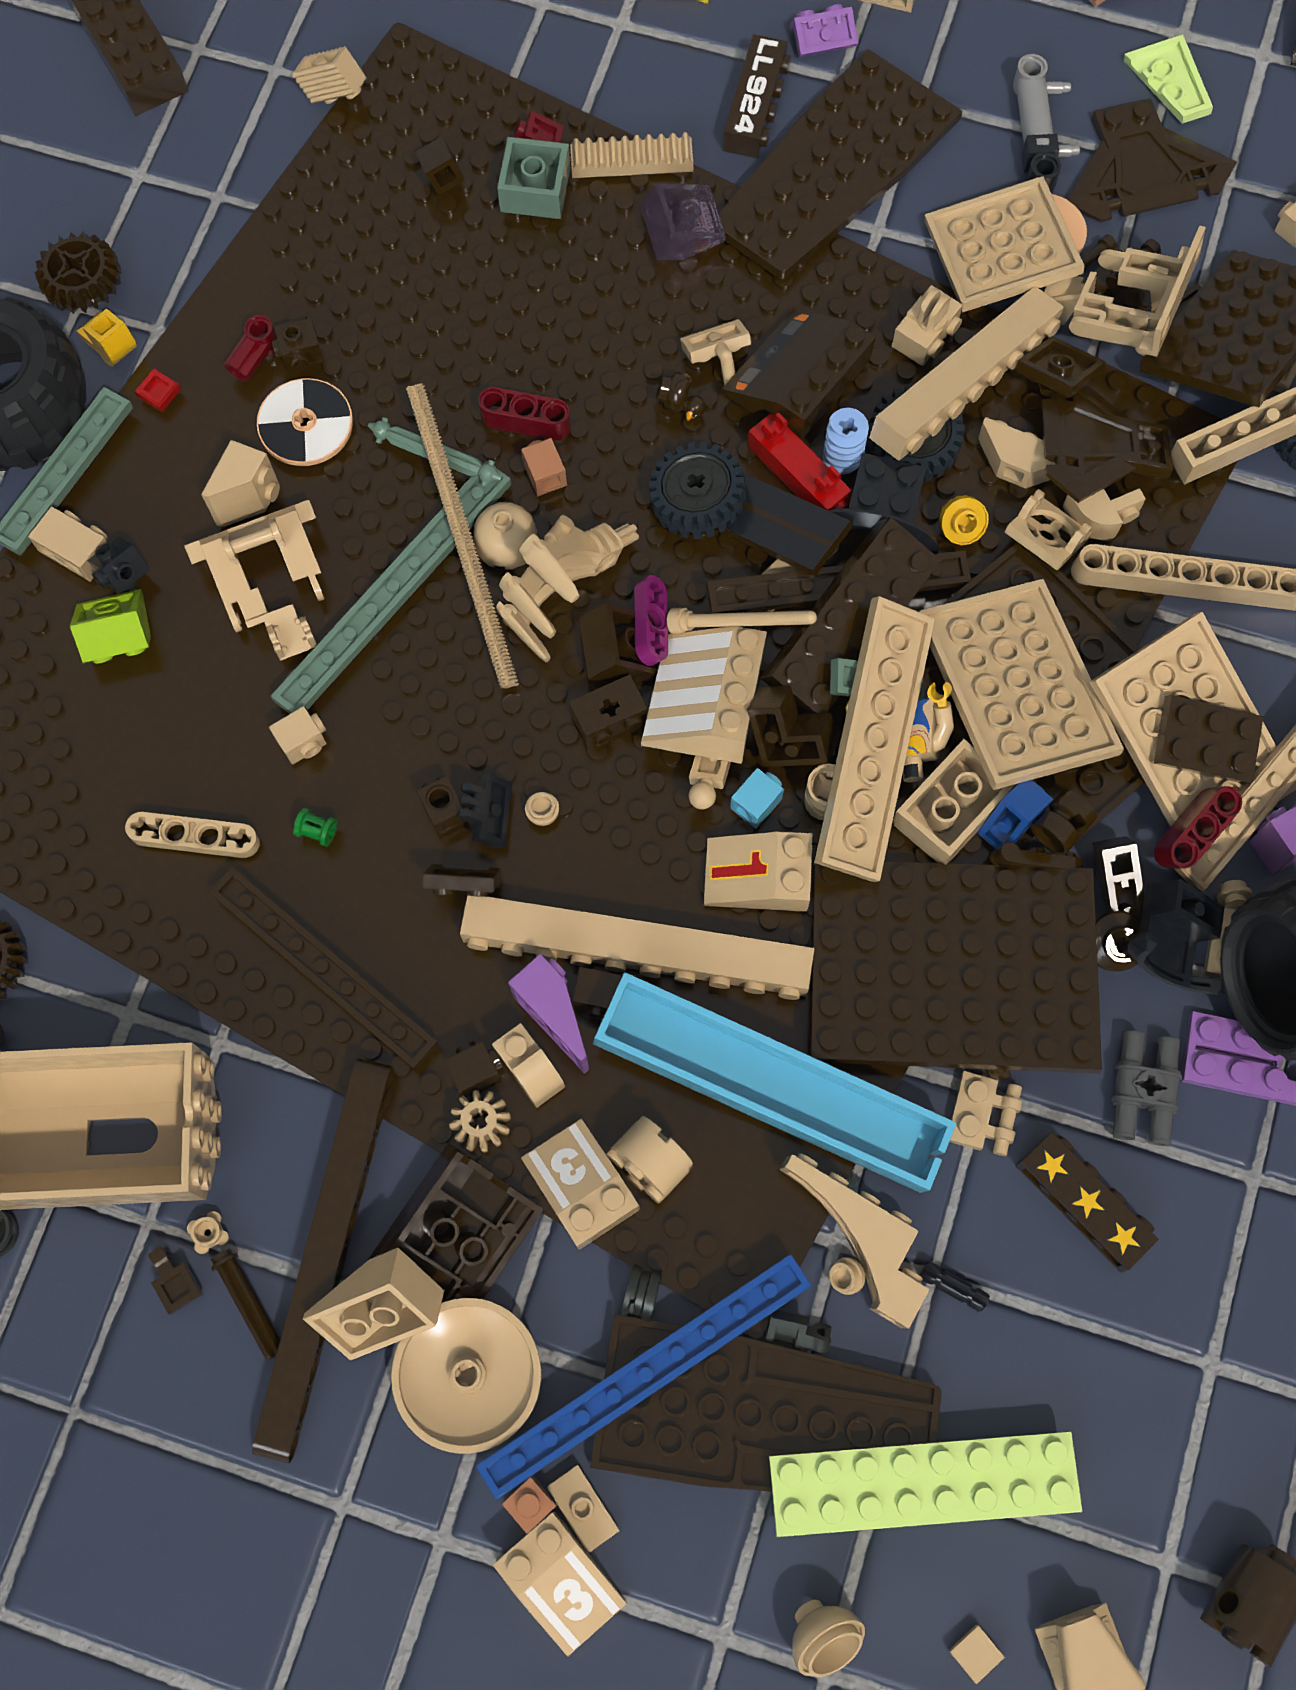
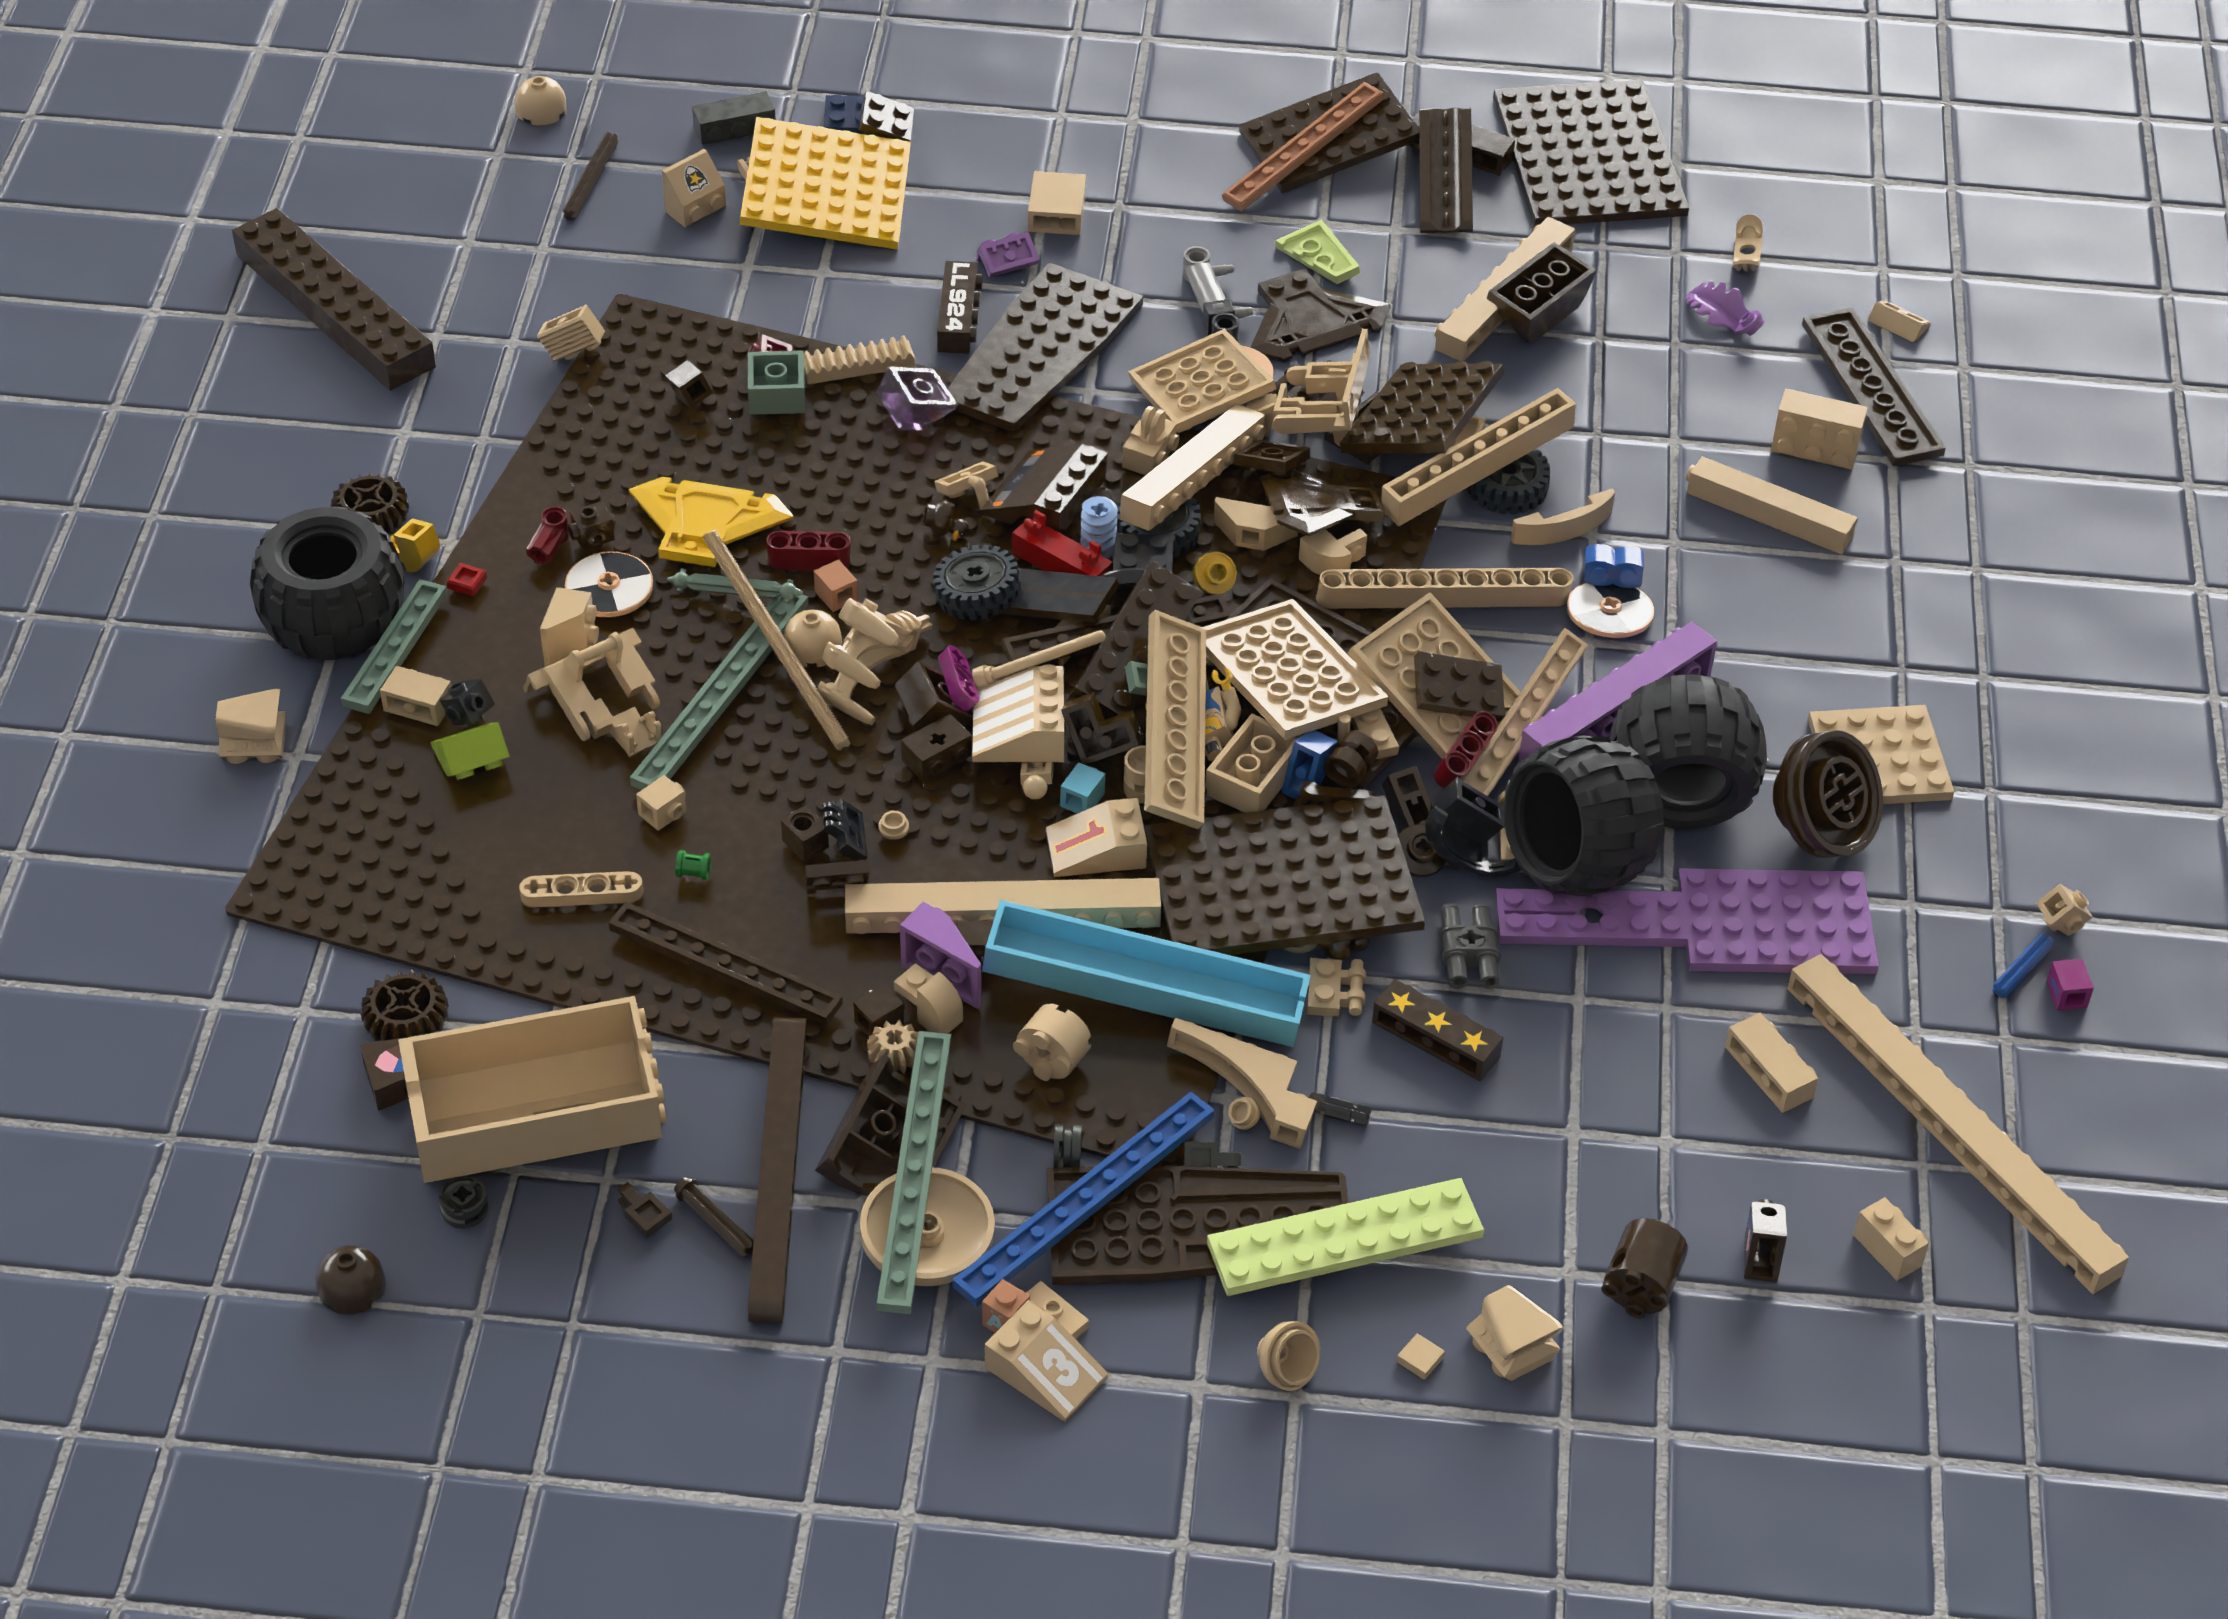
camera: 15 degrees left, 25 degrees down
(197, 1230) = (662, 1166): tan plate -> none
(377, 1306) = (835, 1180): tan slope -> none
(425, 344) = (697, 508): none -> yellow plate
(461, 1316) = (914, 1173): none -> sand green plate
(580, 1184) = (999, 1081): tan slope -> none
(1036, 543) = (1293, 566): tan piece -> none
(1097, 784) = (1373, 725): none -> tan plate

